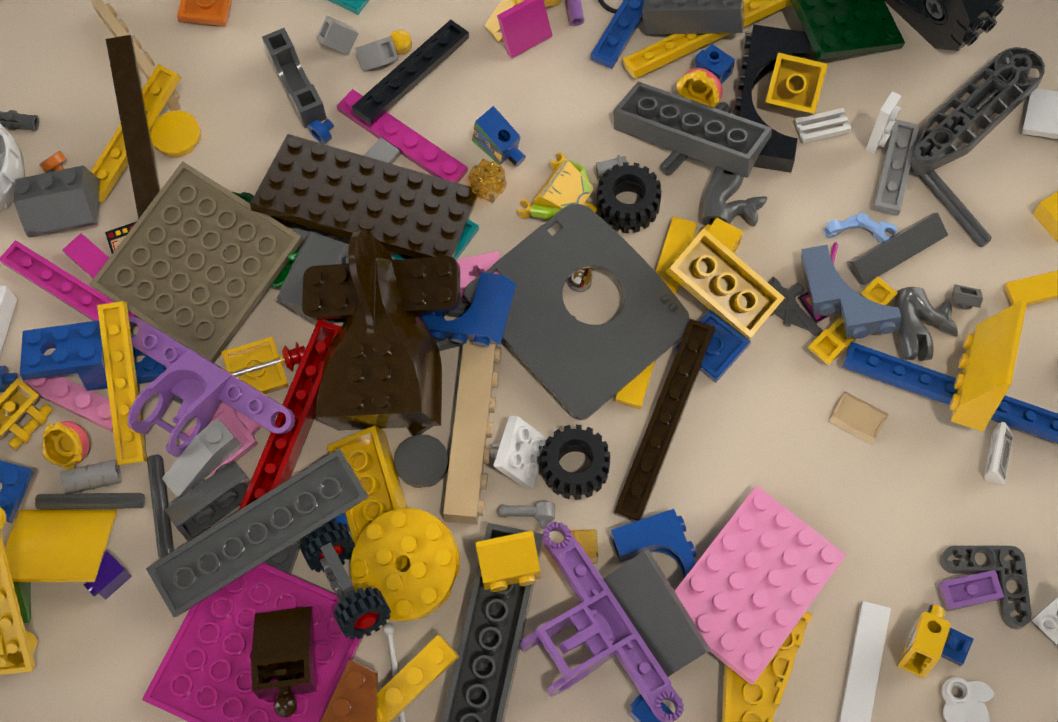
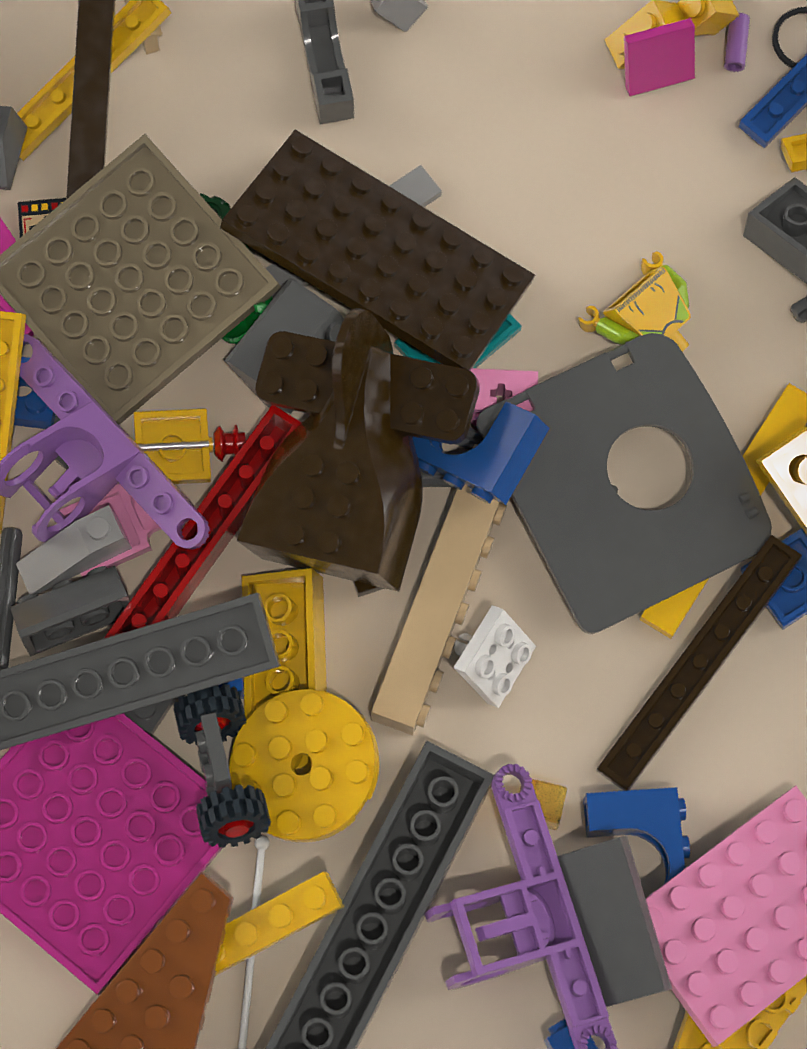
camera: 10 degrees right, 5 degrees up
(175, 133) = (144, 86): yellow tile -> none
(284, 652) = (121, 837): dark brown slope -> none
(320, 130) = (341, 135): blue tile -> none
(377, 53) = (445, 42): light grey panel -> none
(401, 41) = (481, 33): yellow tile -> none
(409, 142) = (449, 172): dark pink plate -> none
(410, 72) = (485, 83): black plate -> none
(421, 461) = (361, 630): dark grey tile -> none
(488, 180) = (550, 266): clear yellow brick -> none
(497, 138) = (579, 211): blue torso -> none
(508, 561) = (440, 802): yellow slope -> none
(542, 511) = (502, 742): light grey piece -> none
(579, 441) = (570, 659): black tyre -> none
(580, 280) = (638, 440): tile -> none
(608, 164) = (725, 290): light grey pin -> none
(629, 179) = (741, 315): black tyre -> none

